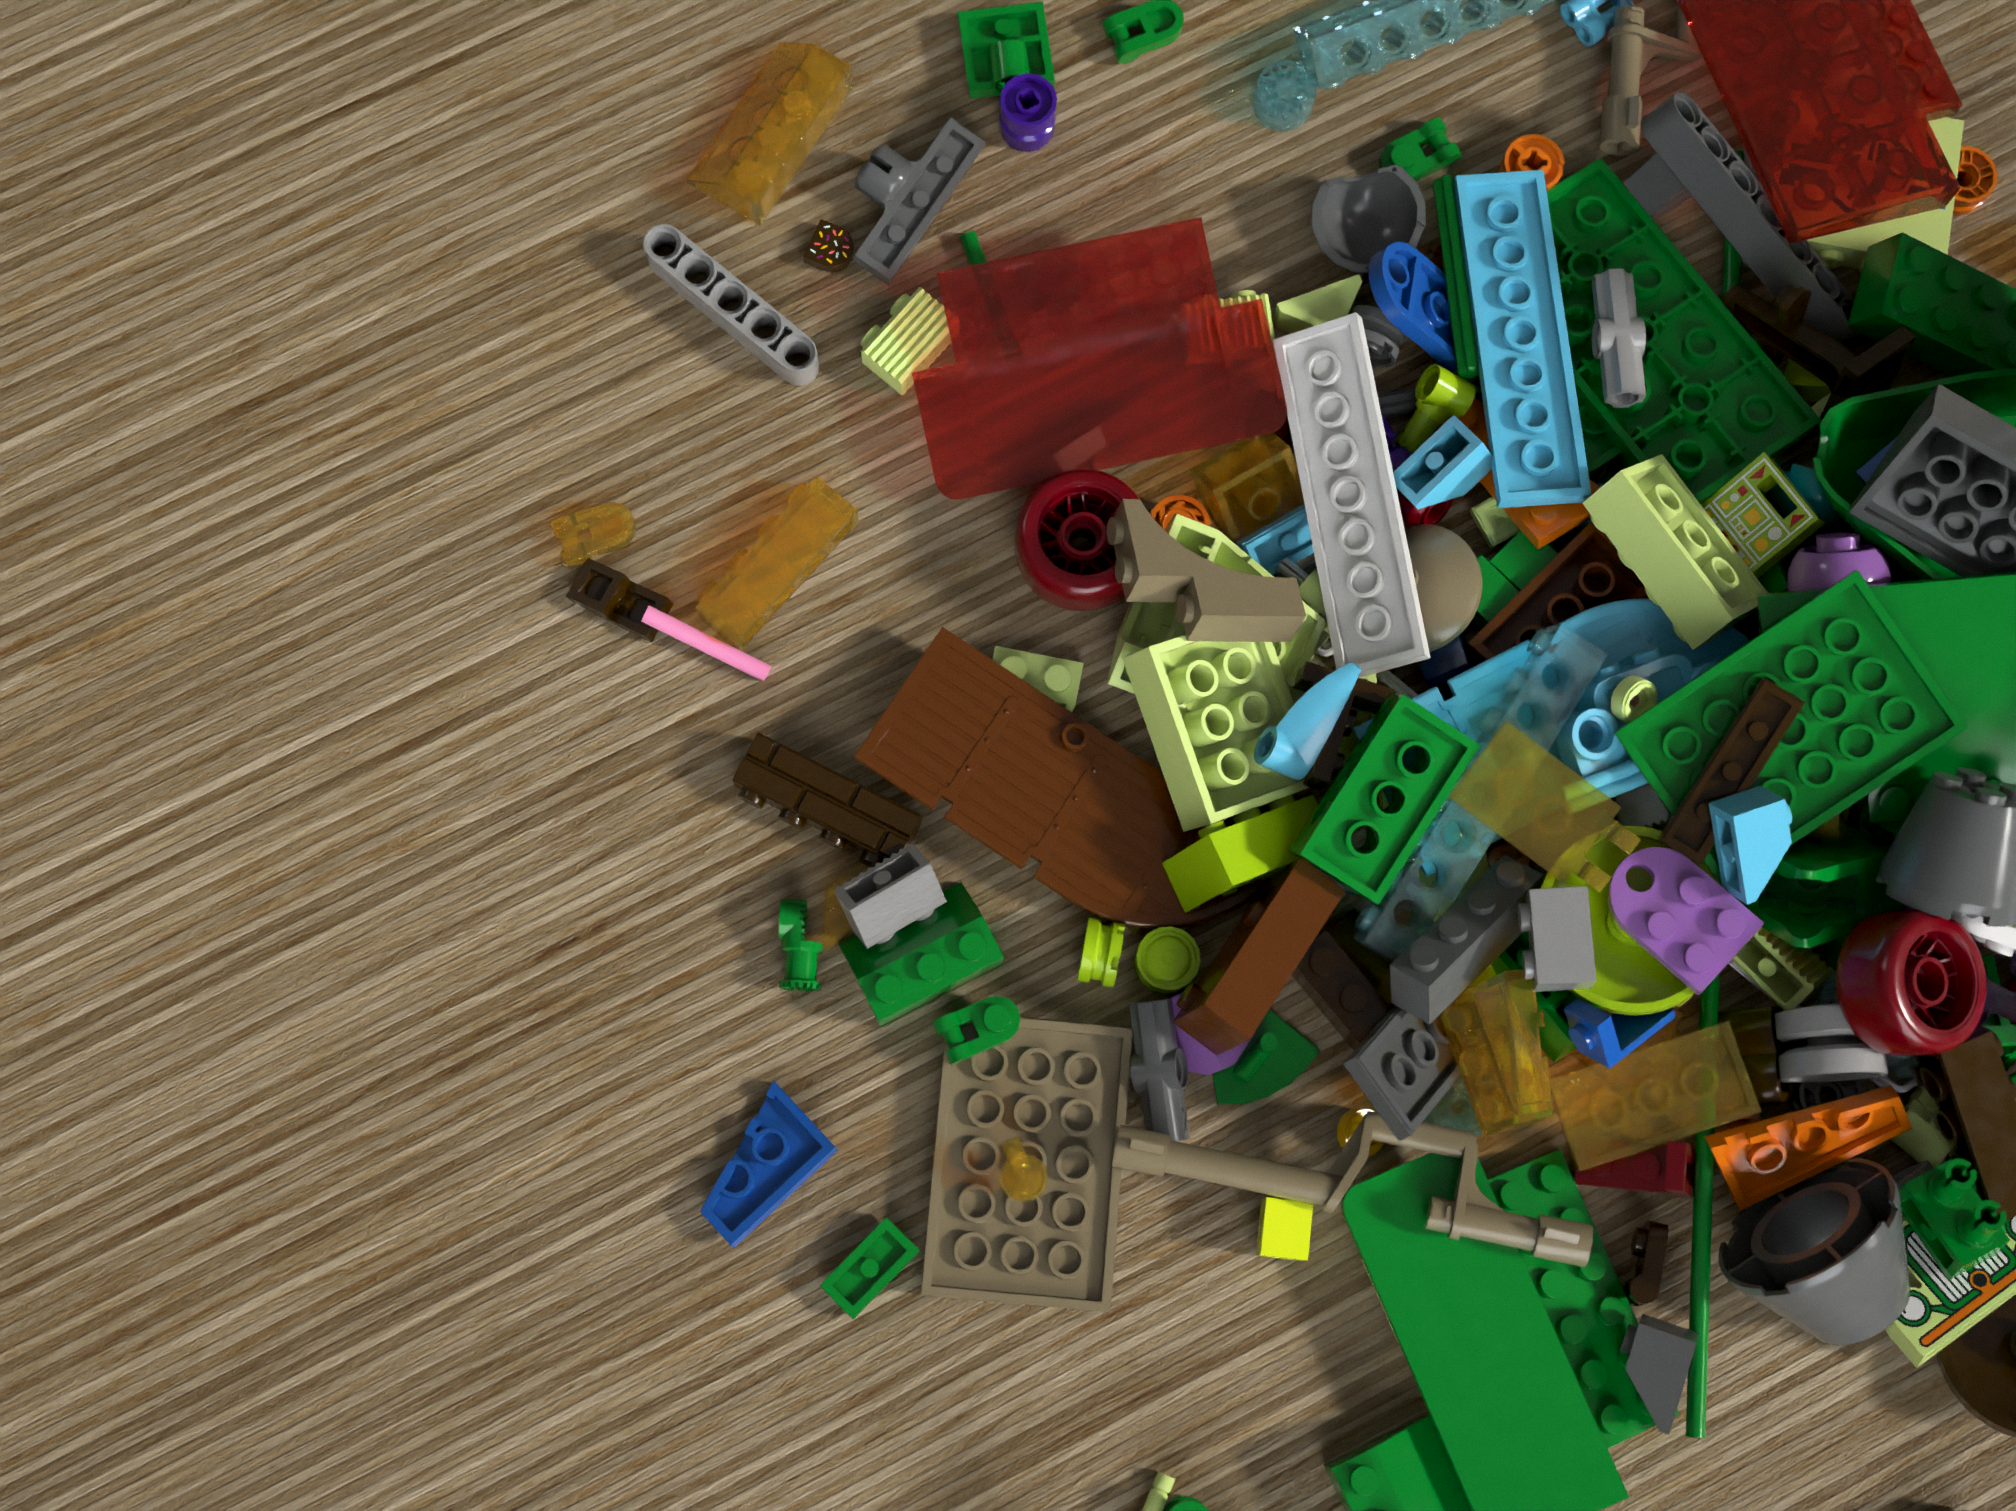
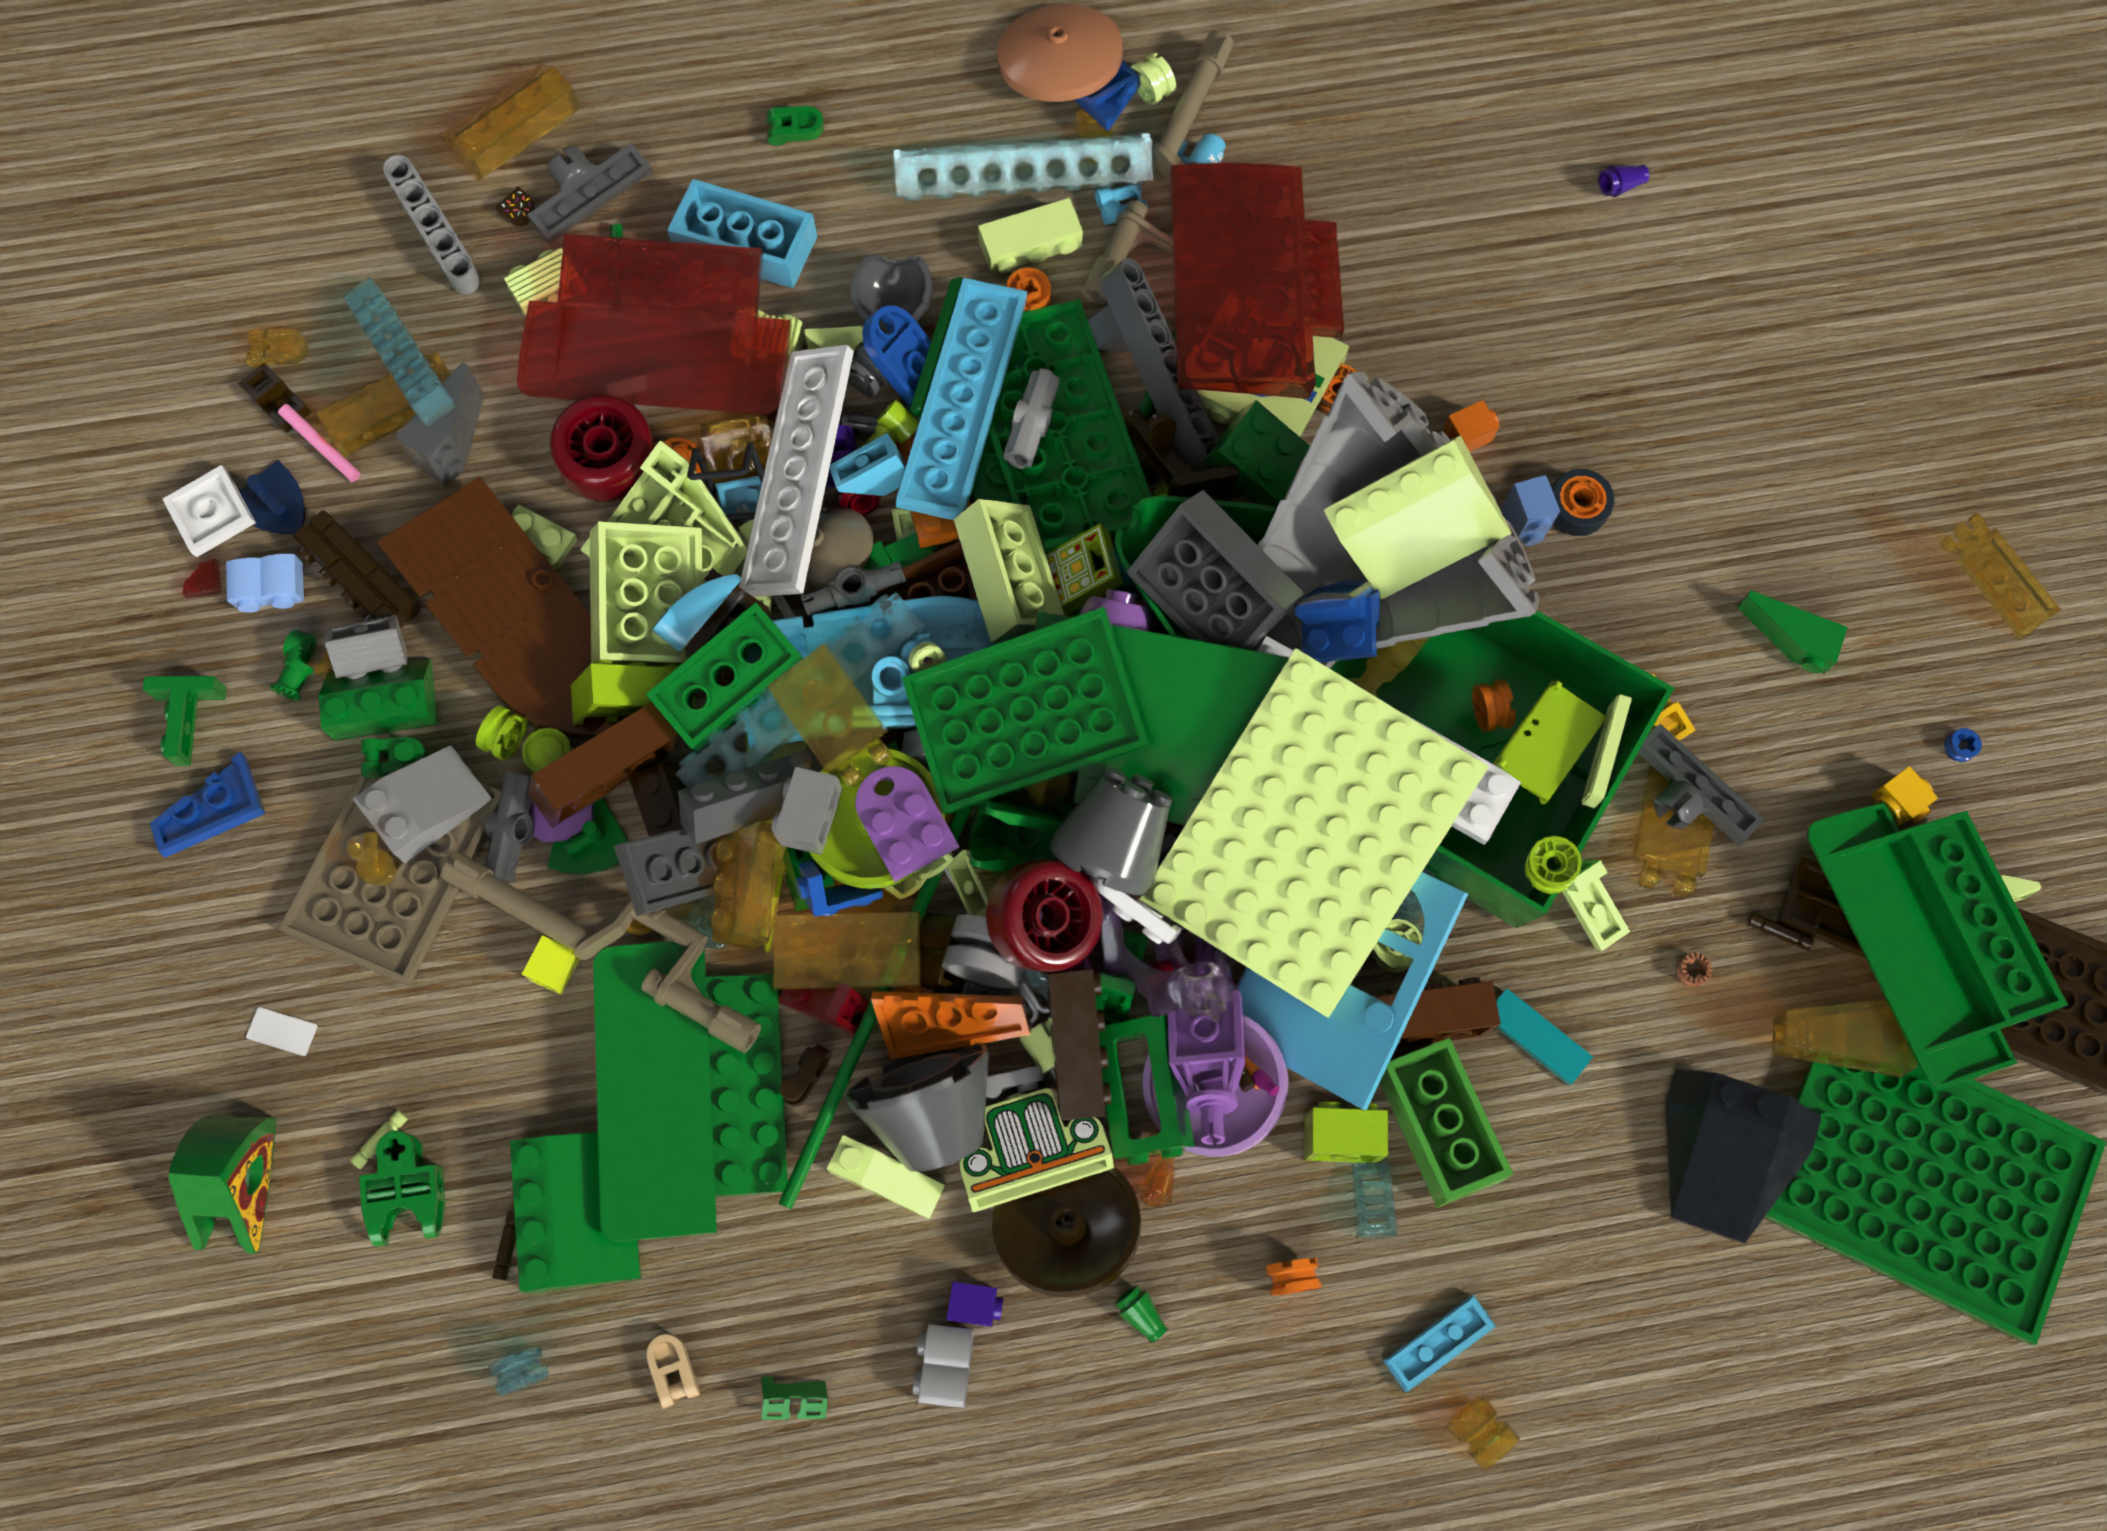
camera: 20 degrees right, 5 degrees down
(601, 778) = (209, 511): none -> white plate
(627, 870) = (203, 580): none -> clear red tile
(670, 739) = (275, 500): none -> dark blue shield
(675, 1050) = (180, 710): none -> green bracket
(713, 850) = (264, 582): none -> light blue brick
(781, 494) = (399, 352): none -> clear light blue beam
(867, 595) = (445, 445): none -> dark grey slope
(869, 1268) = (252, 901): green plate -> none
(969, 1420) = (281, 1031): none -> white sticker
(1004, 44) = (691, 111): green plate -> none
(1027, 112) = (686, 154): dark purple wheel -> none
(1045, 1073) = (422, 802): none -> light grey slope
(1142, 187) = (740, 220): none -> medium azure brick
(1208, 597) = (656, 501): dark tan arch -> none
(1284, 97) = (873, 197): clear light blue wheel -> none
(1305, 522) = (750, 452): none -> black piece
(1408, 154) = (943, 264): green plate -> none
(1499, 614) = (838, 596): none -> dark grey pin
(1506, 92) = (1030, 236): none -> yellowish green brick
(1659, 1365) = (774, 1146): dark grey slope -> none
(1731, 766) = (971, 726): dark brown tile -> none
(1750, 839) = (964, 775): medium azure slope -> none
(1786, 1358) = (885, 1177): none -> yellowish green slope
(1952, 1217) = (1028, 1104): green brick -> none
(1957, 1480) = (974, 1304): none -> dark purple brick

